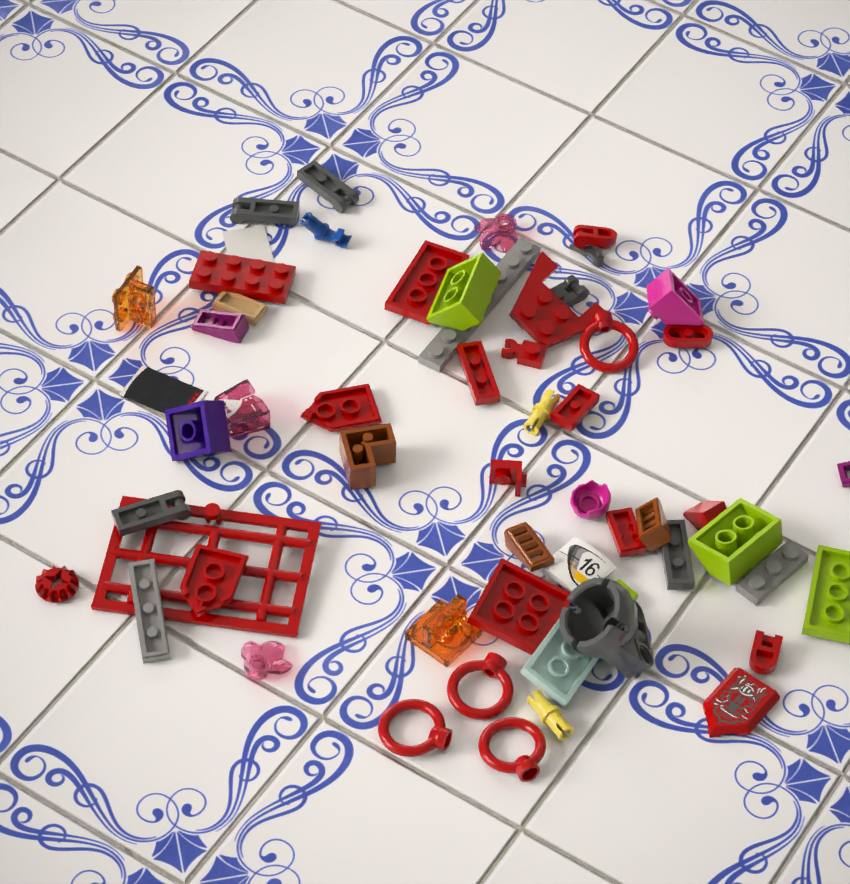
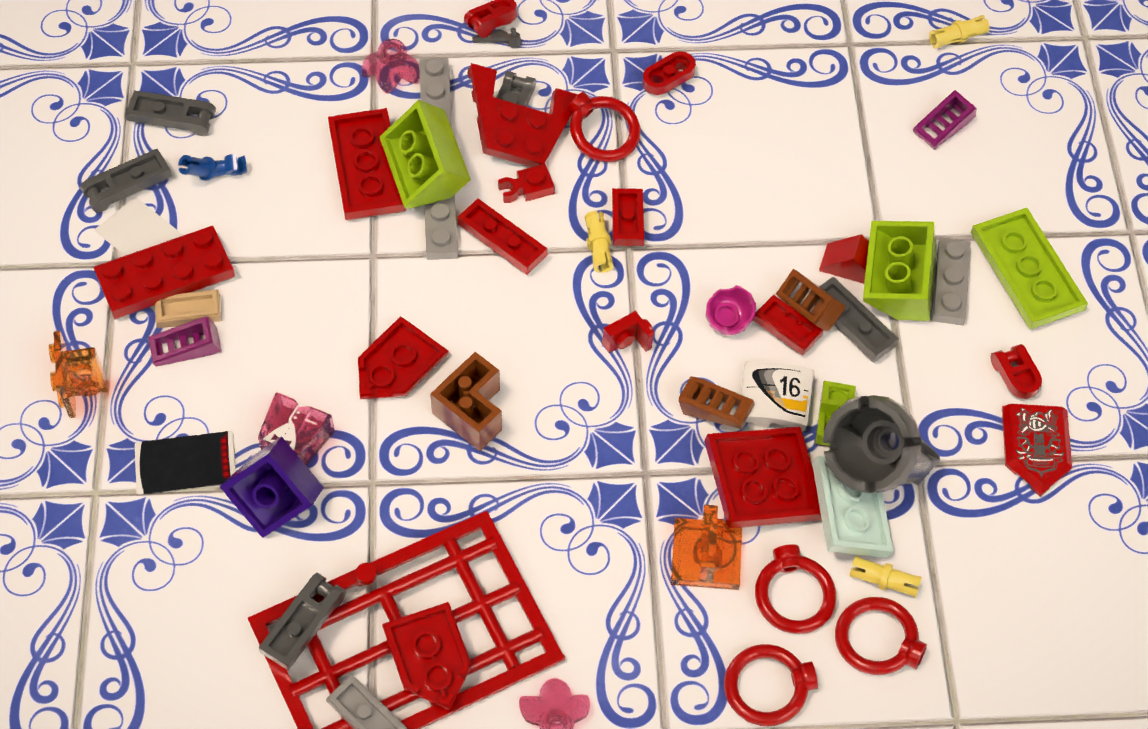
camera: 35 degrees left, 10 degrees up
(673, 301) = (629, 44): dark pink slope -> none

